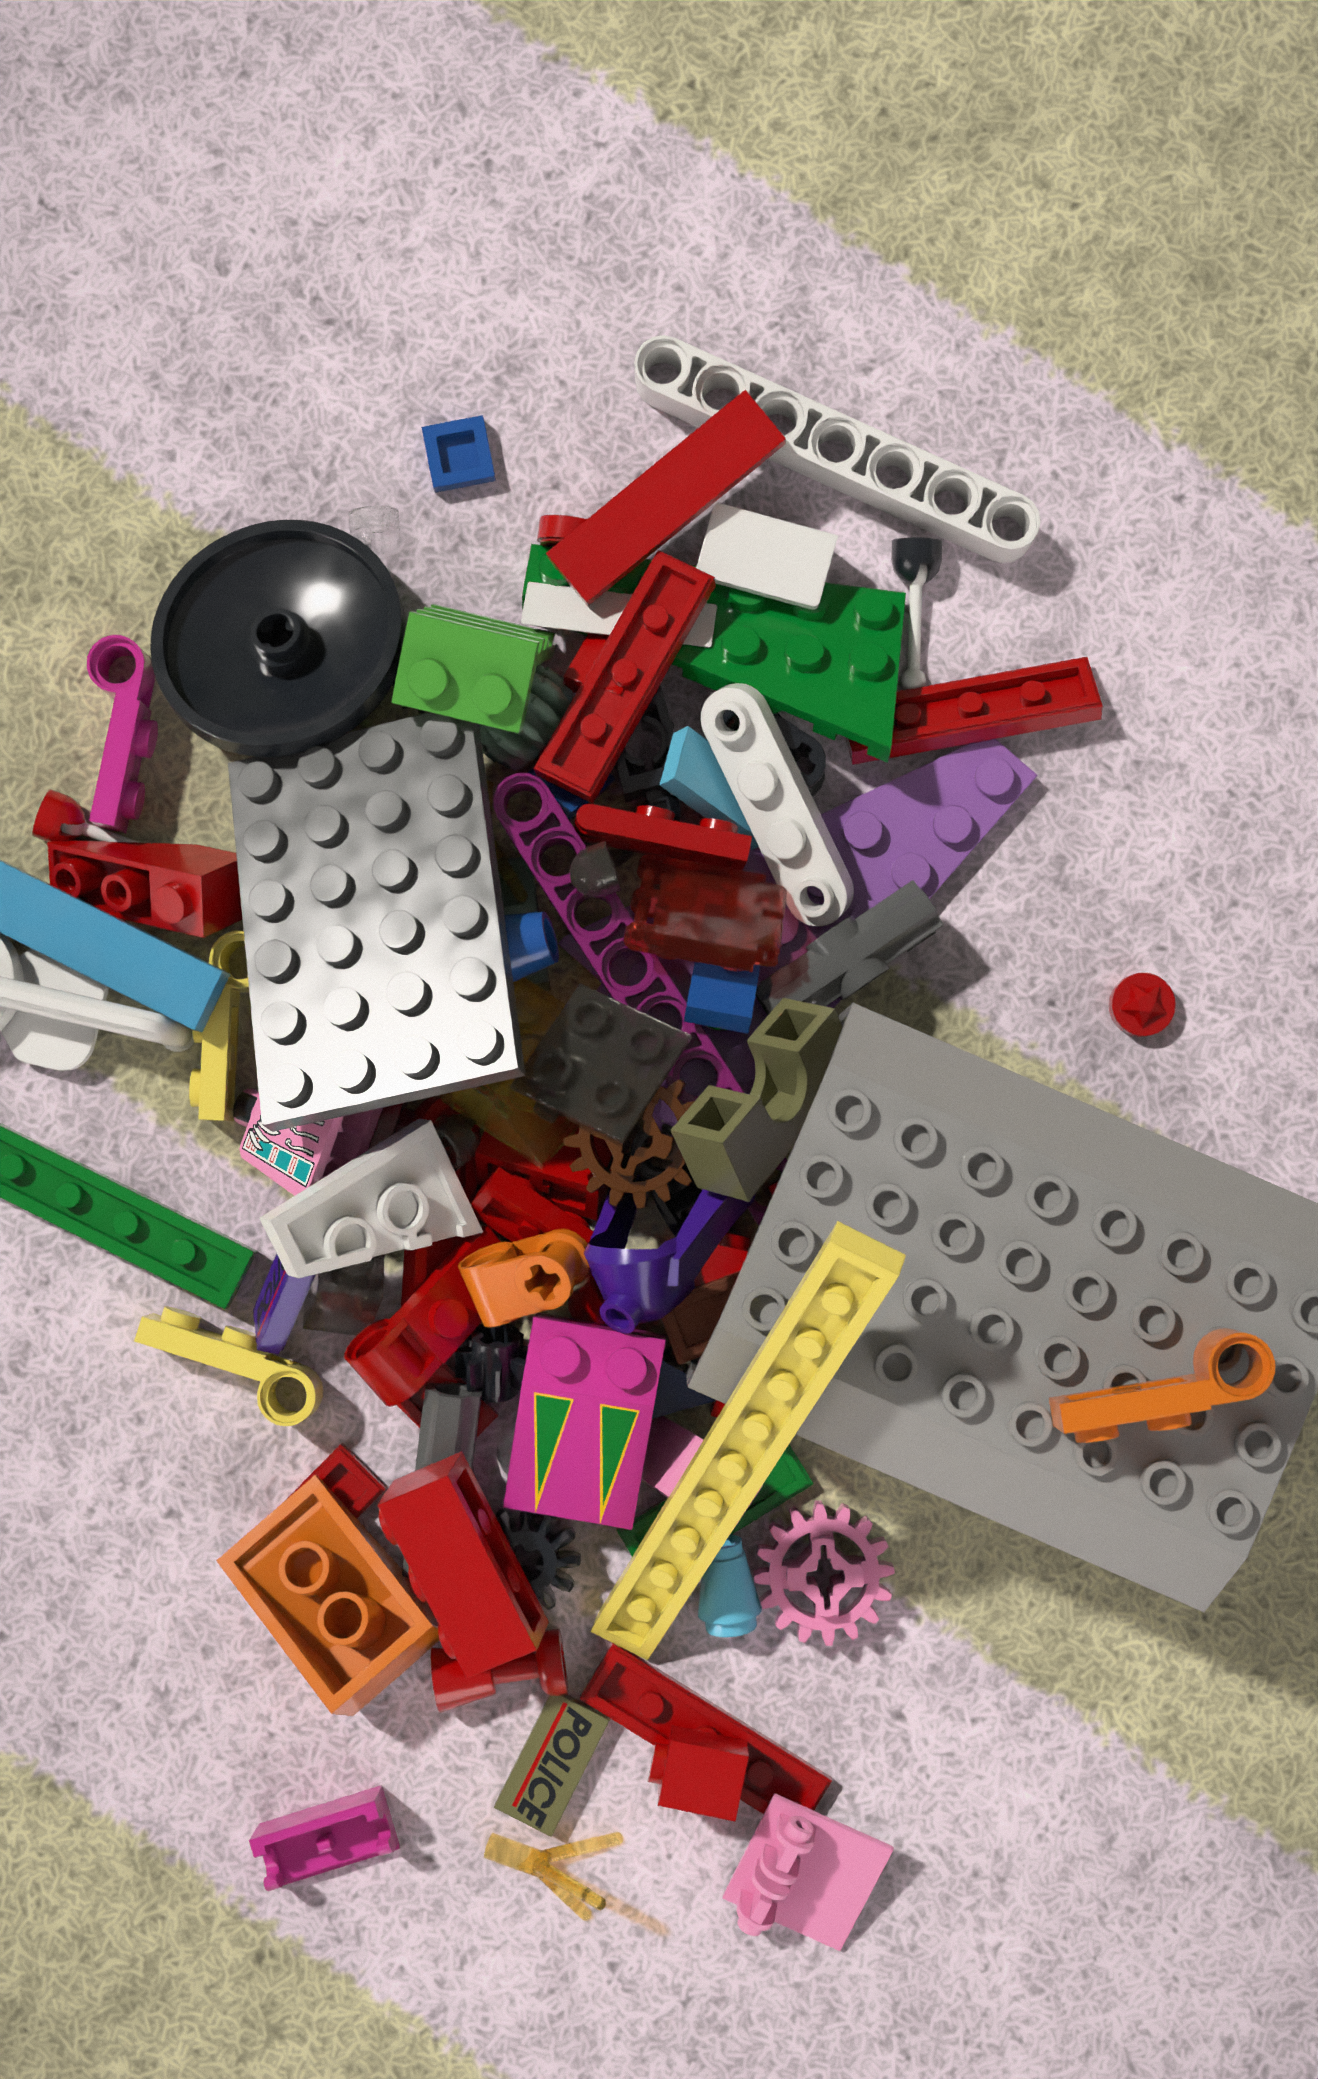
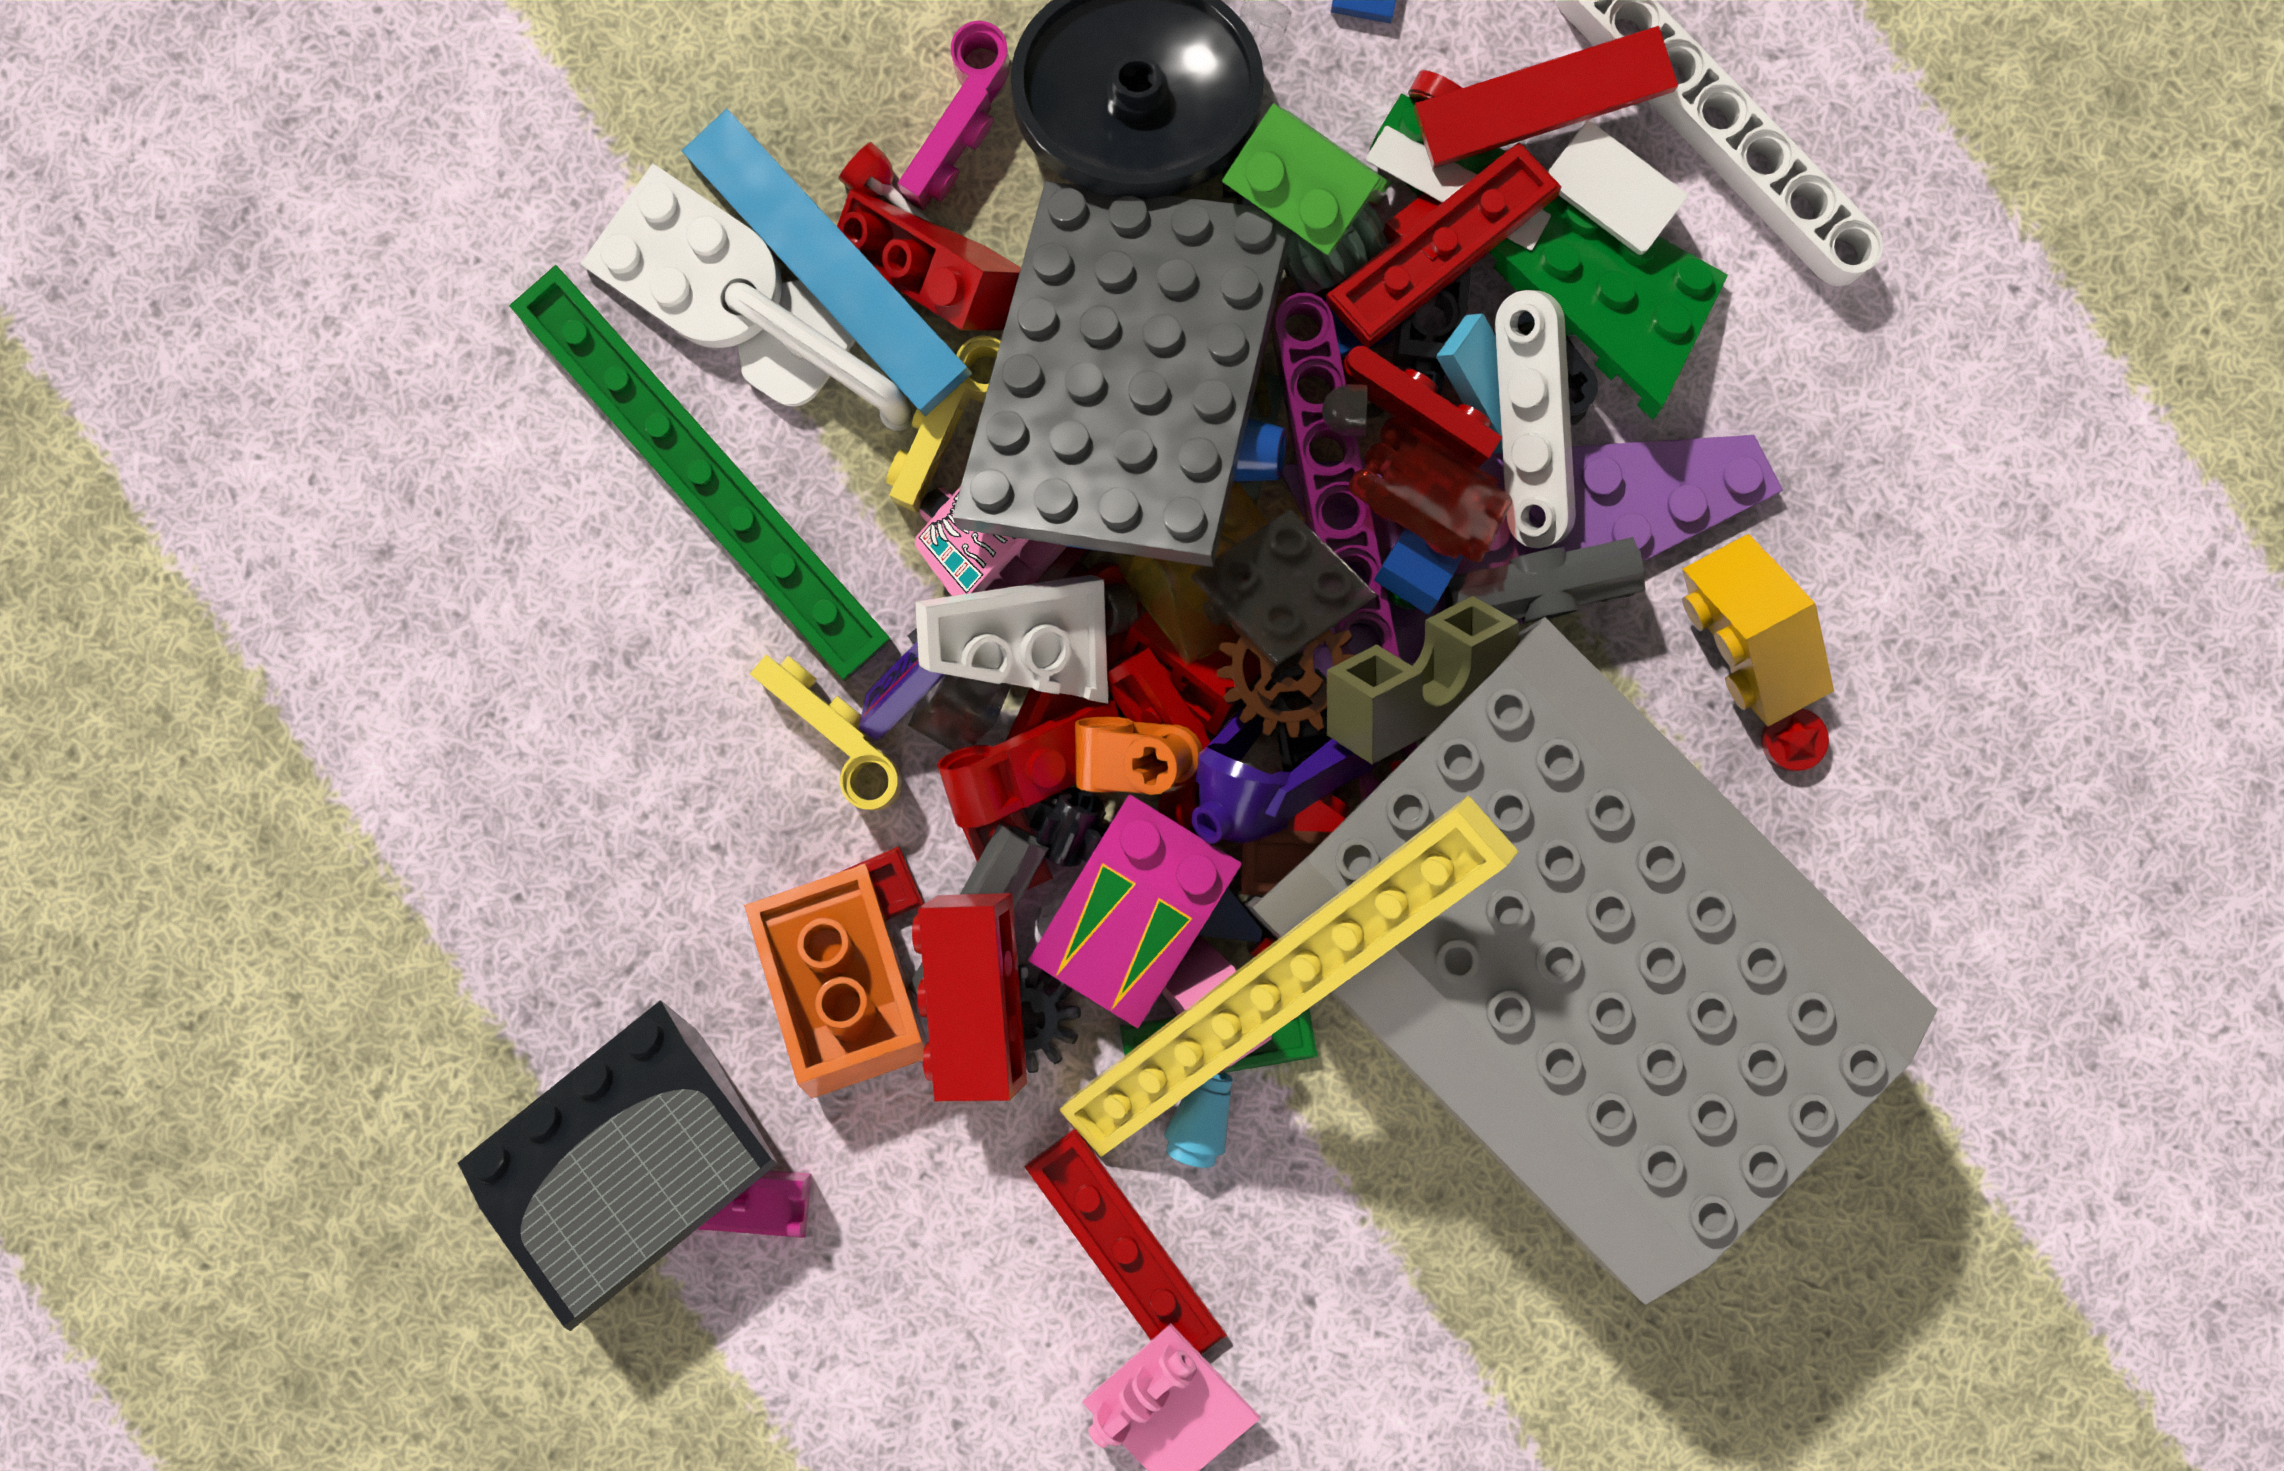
camera: 15 degrees right, 0 degrees up
(192, 1855) = (617, 1163): none -> slope
(454, 1689) = (918, 1110): red piece -> none
(536, 1863) = (926, 1302): clear yellow plant -> none
(552, 1762) = (976, 1214): olive tile -> none
(700, 1772) = (1110, 1276): red brick -> none
(854, 1573) = (1322, 1150): bright pink gear -> none
(916, 563) = (1747, 254): hinge -> none
(990, 708) = (1763, 411): red tile -> none
(1066, 917) = (1761, 628): none -> yellow brick
(1166, 1401) = (1699, 1091): orange plate -> none

